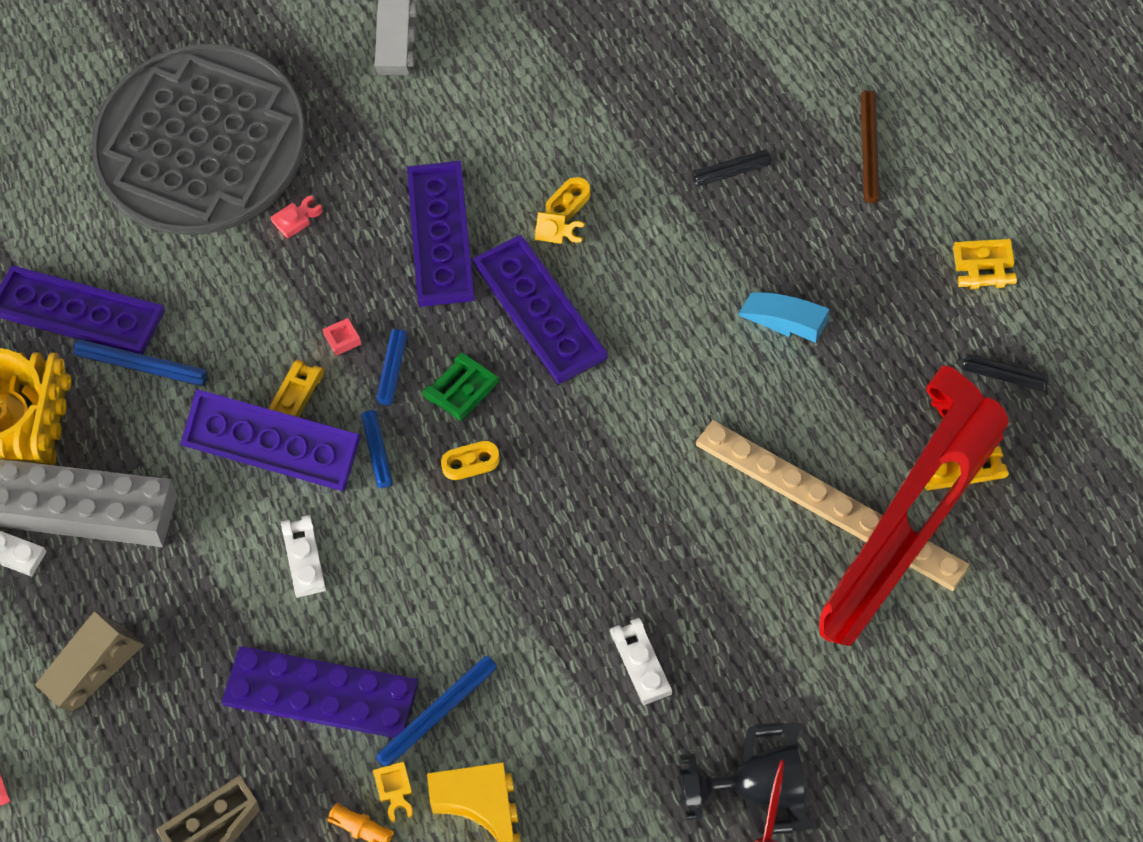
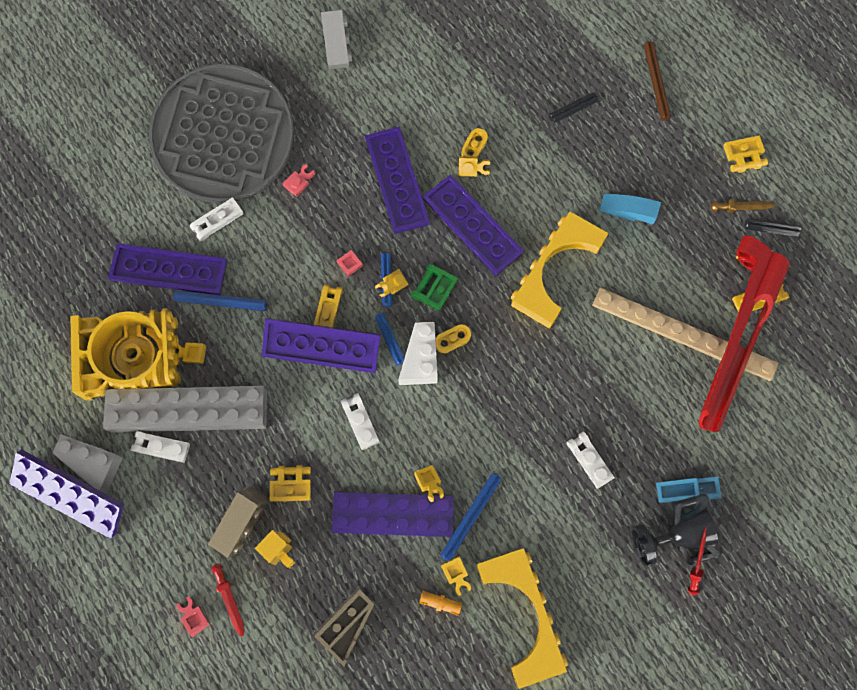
camera: 15 degrees left, 15 degrees up
(44, 756) = (224, 588): none -> red sword
(81, 427) = (192, 352): none -> yellow plate
(132, 704) = (275, 548): none -> yellow brick
(162, 252) = (216, 219): none -> white plate
(177, 634) = (290, 490): none -> yellow plate
(385, 651) = (429, 480): none -> yellow plate
(400, 369) = (392, 283): none -> yellow plate
(414, 477) = (420, 358): none -> white wedge
(684, 339) = (572, 234): none -> yellow arch
(817, 730) = (681, 489): none -> dark azure slope
(946, 334) = (731, 206): none -> pearl gold sword

